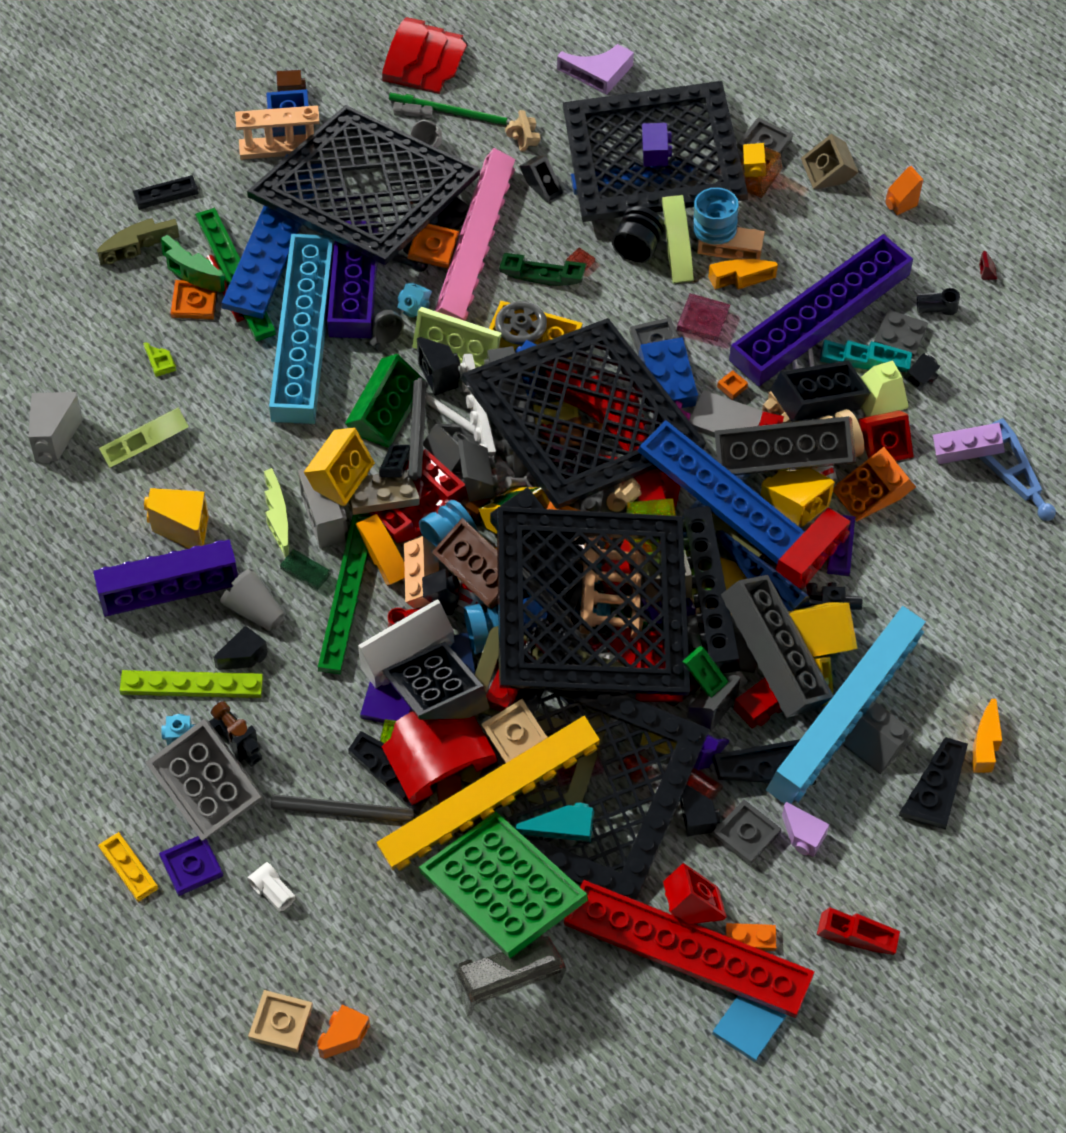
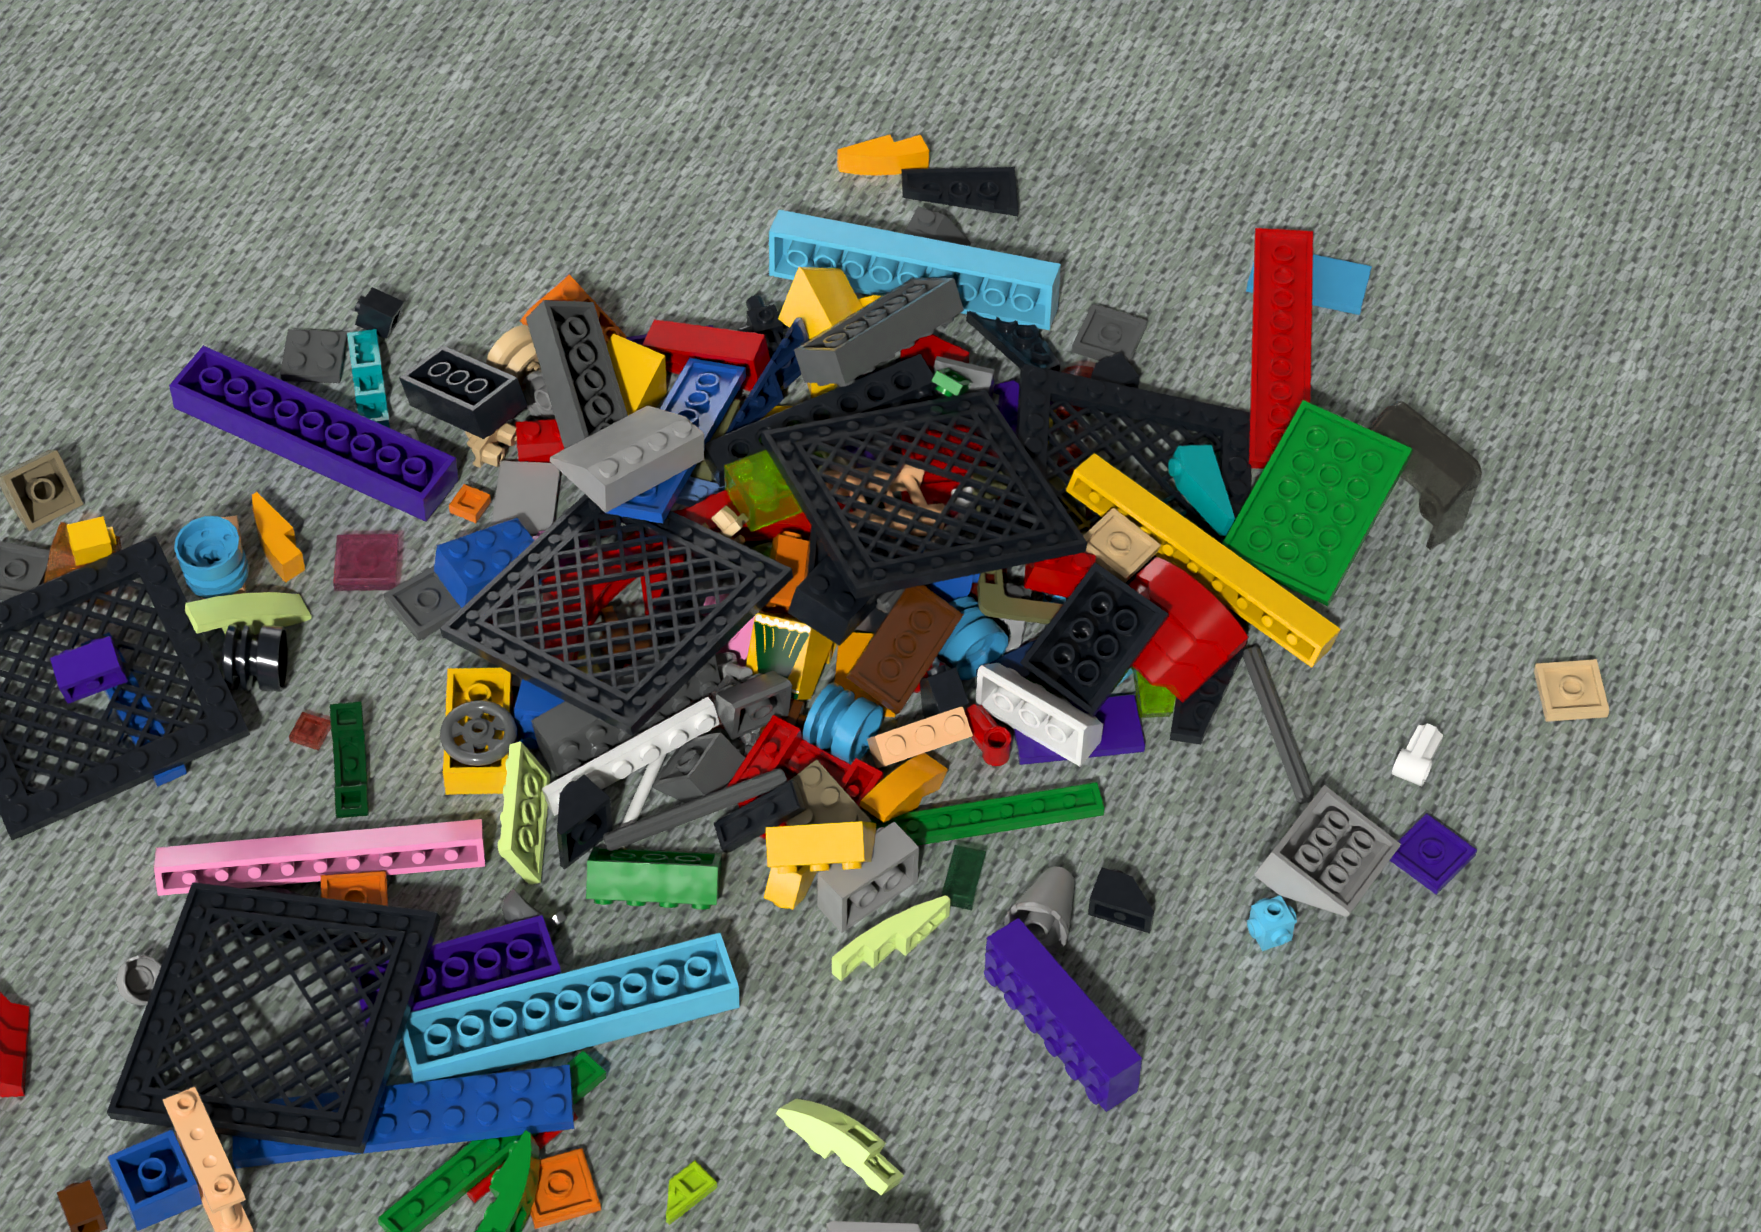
camera: 110 degrees left, 5 degrees down
(128, 867) = (1469, 918): yellow tile -> none
(178, 515) = (957, 1034): yellow slope -> none
(191, 684) = (1190, 947): lime plate -> none
(242, 740) = (1250, 850): black hips -> none
(345, 1032) = (1553, 623): orange slope -> none
(410, 99) = (62, 1035): green bar -> none
(412, 110) = (81, 1028): light grey axle -> none
(413, 298) = (465, 892): medium azure brick -> none
(521, 131) = (86, 865): tan hips -> none
(541, 177) = (172, 815): black slope -> none
(693, 897) = (1224, 353): red slope -> none
(701, 442) = (631, 456): none -> light grey slope
(756, 935) = (1231, 306): orange plate -> none
(804, 829) = (1084, 285): lavender slope -> none
(858, 931) = (1180, 217): red slope -> none
(886, 390) = (410, 344): yellowish green slope -> none
(887, 431) = (482, 324): red slope -> none
(904, 191) = (73, 388): orange slope -> none
(944, 302) = (251, 323): black piece -> none
(968, 443) = (482, 239): lavender brick -> none
(987, 267) = (170, 291): dark red slope -> none
(1045, 510) = (461, 240): medium blue plate -> none

